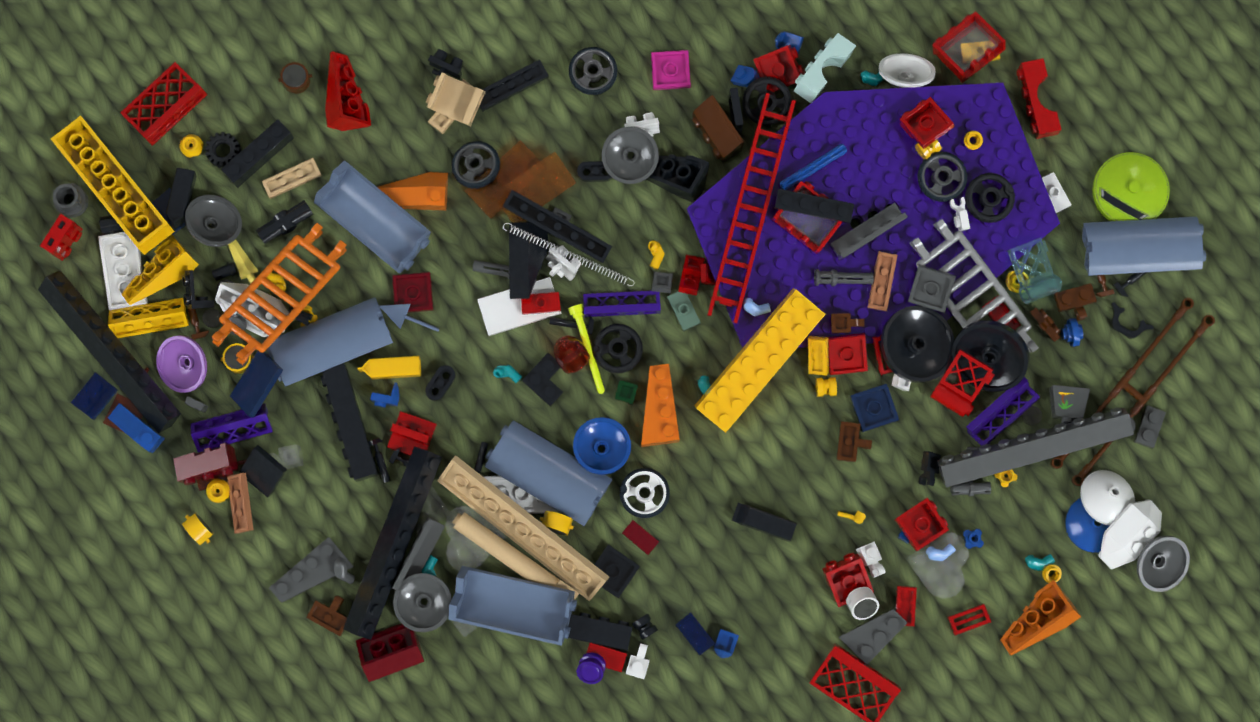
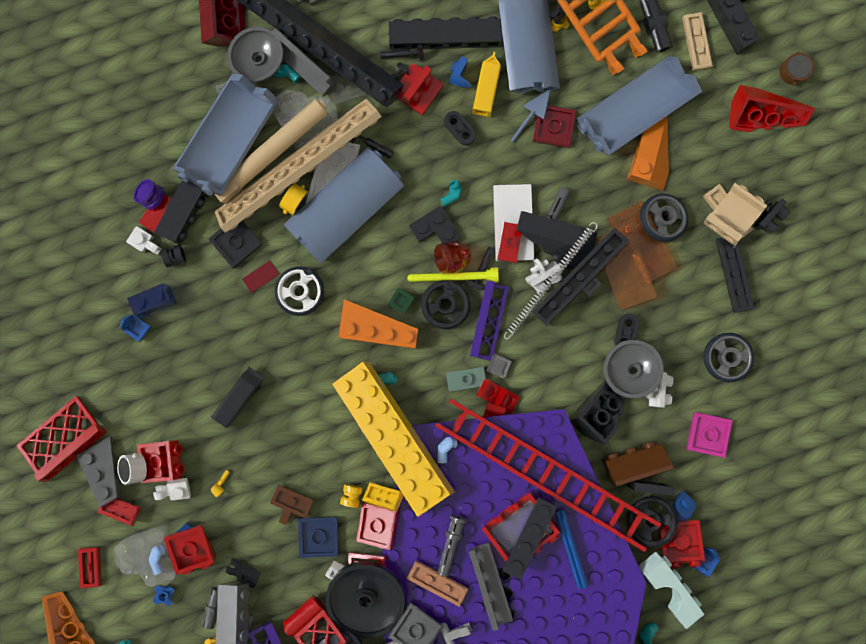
camera: 105 degrees right, 5 degrees up
(603, 433) = (364, 251): blue dish -> none
(657, 252) = (529, 369): yellow arm -> none
(842, 323) = (407, 531): reddish brown plate -> none

